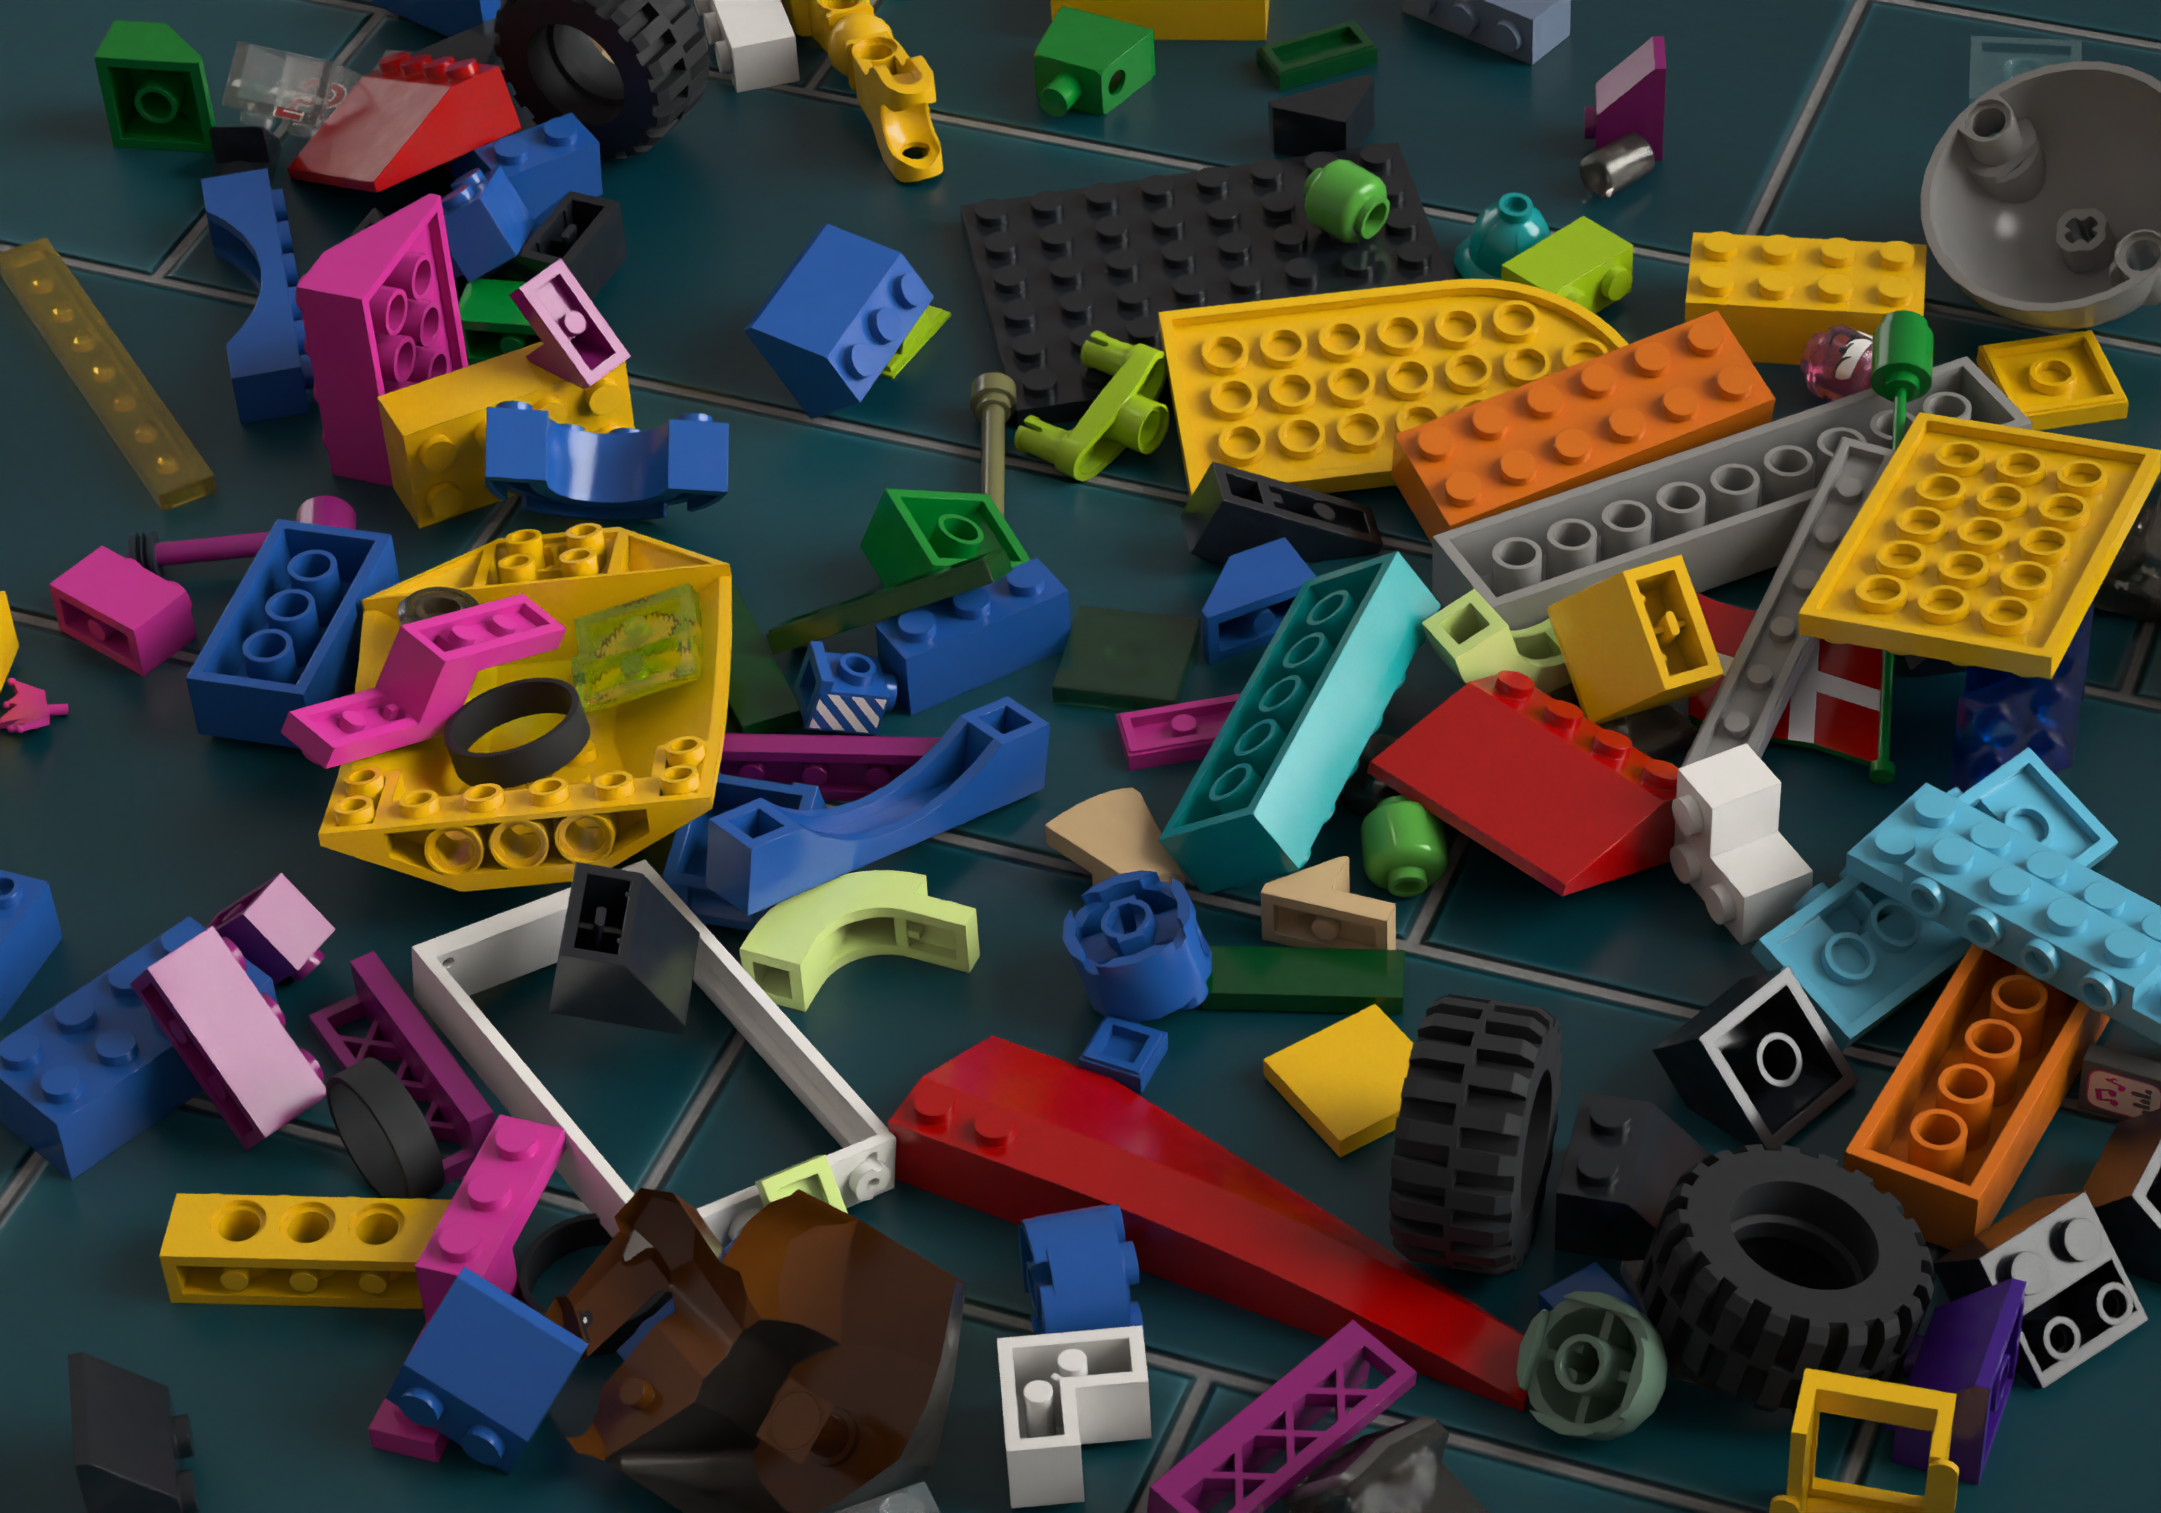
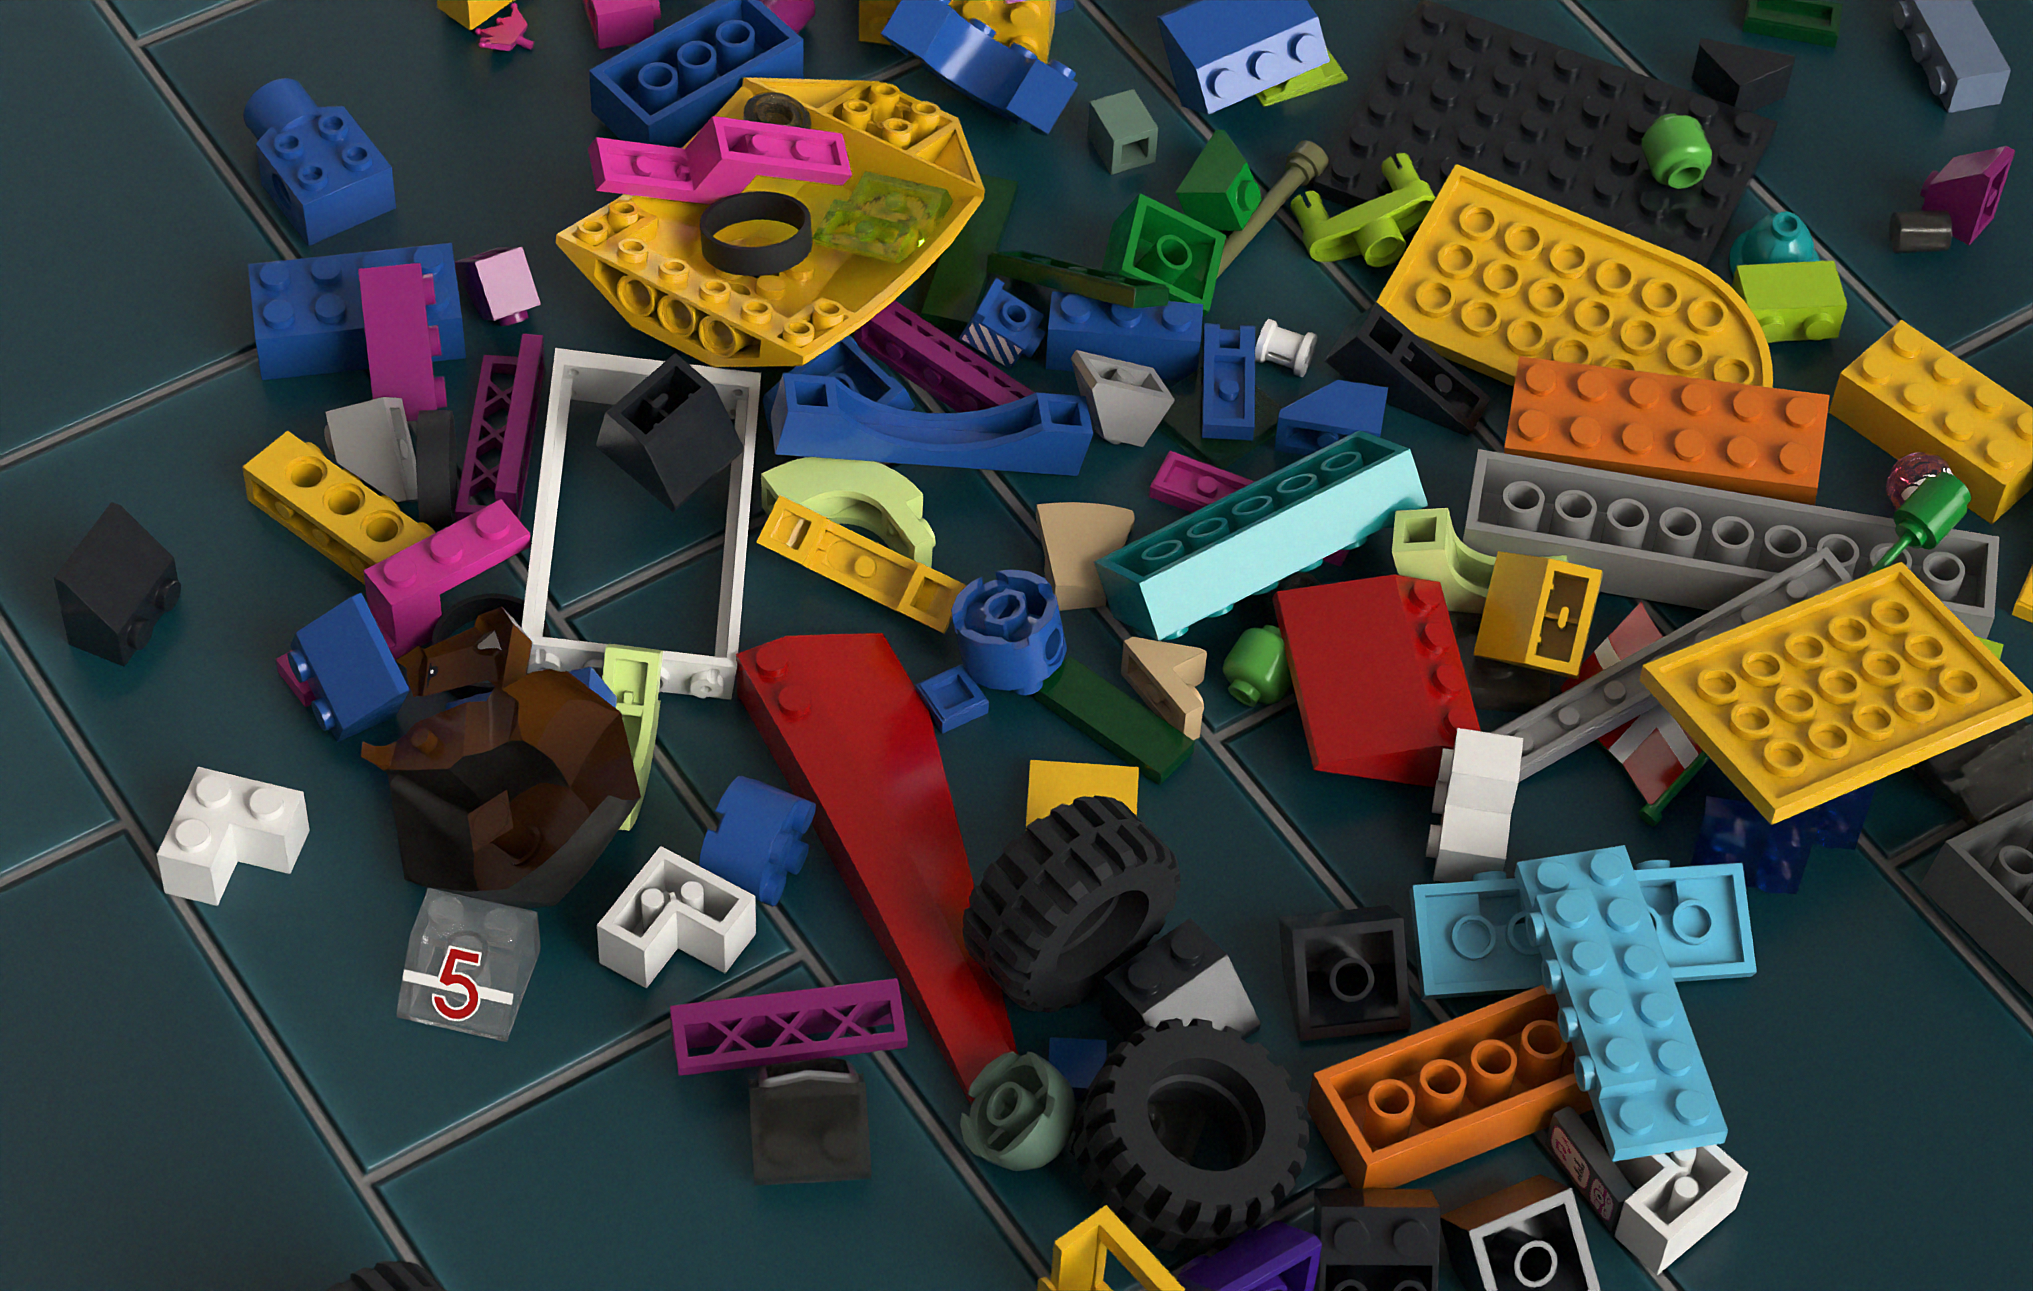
camera: 30 degrees right, 10 degrees up
(287, 1154) = (375, 445): none -> light grey slope
(785, 463) = (1122, 131): none -> sand green brick
(925, 979) = (860, 564): none -> yellow slope
(939, 450) = (1220, 187): none -> green slope
(1040, 678) = (1121, 397): none -> light grey slope
(1125, 618) = (1228, 382): none -> blue plate
(1138, 564) = (1285, 347): none -> white bush

